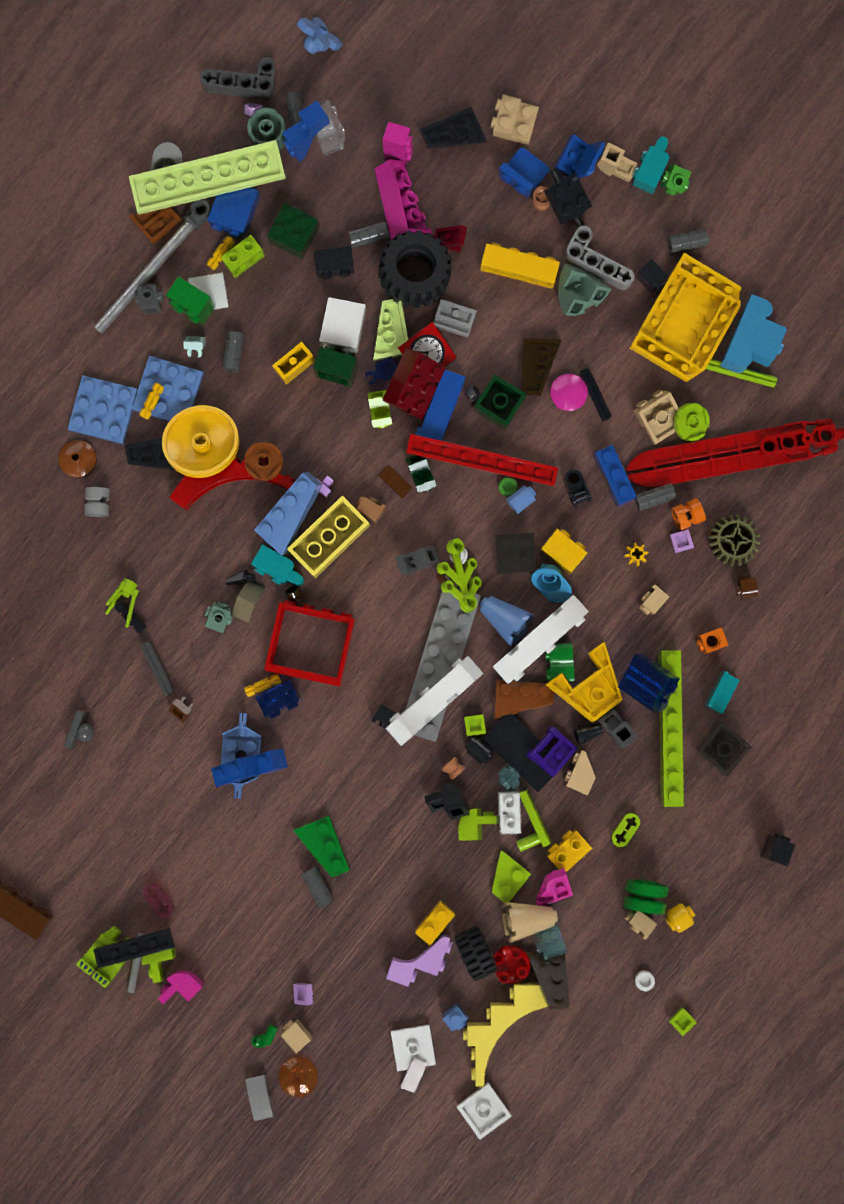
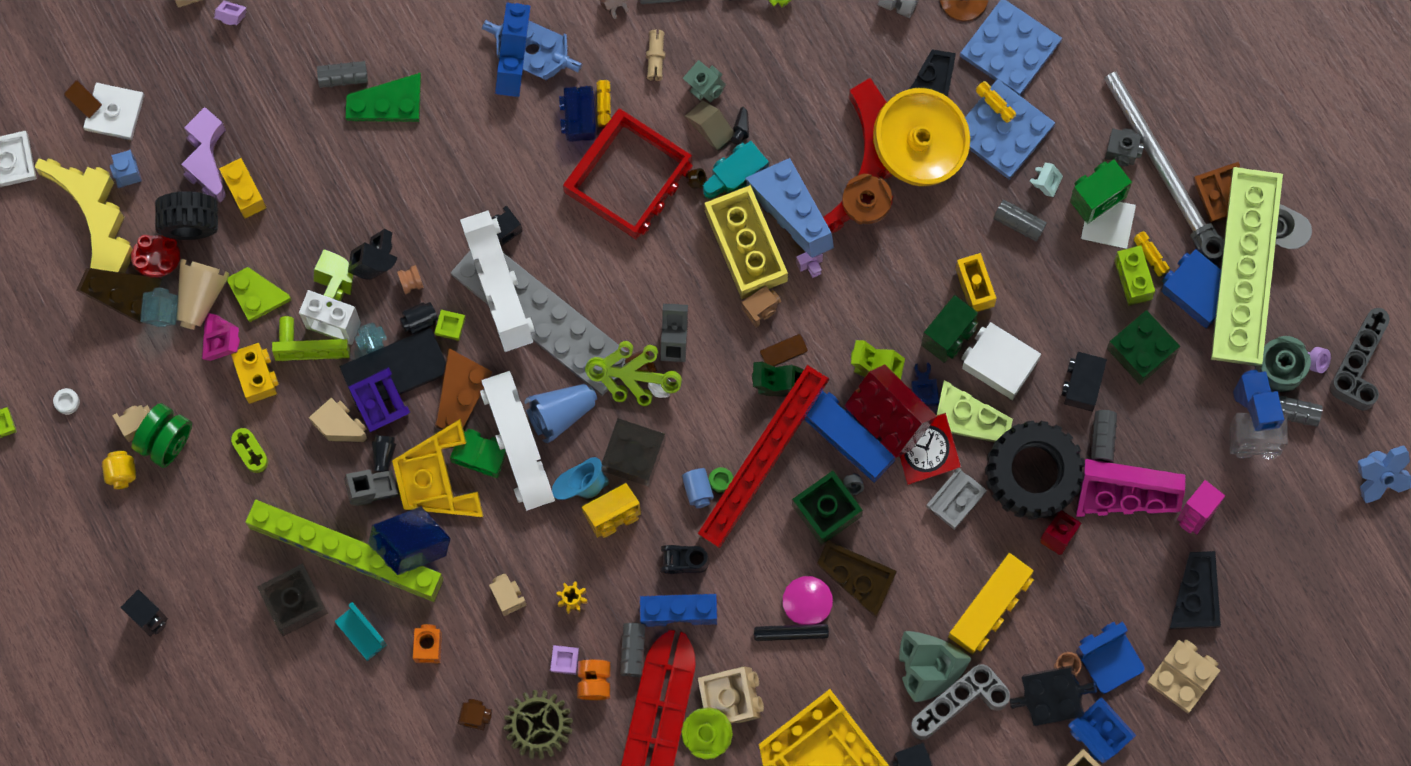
camera: 110 degrees right, 10 degrees down
(210, 662) = (655, 55): none -> tan pin

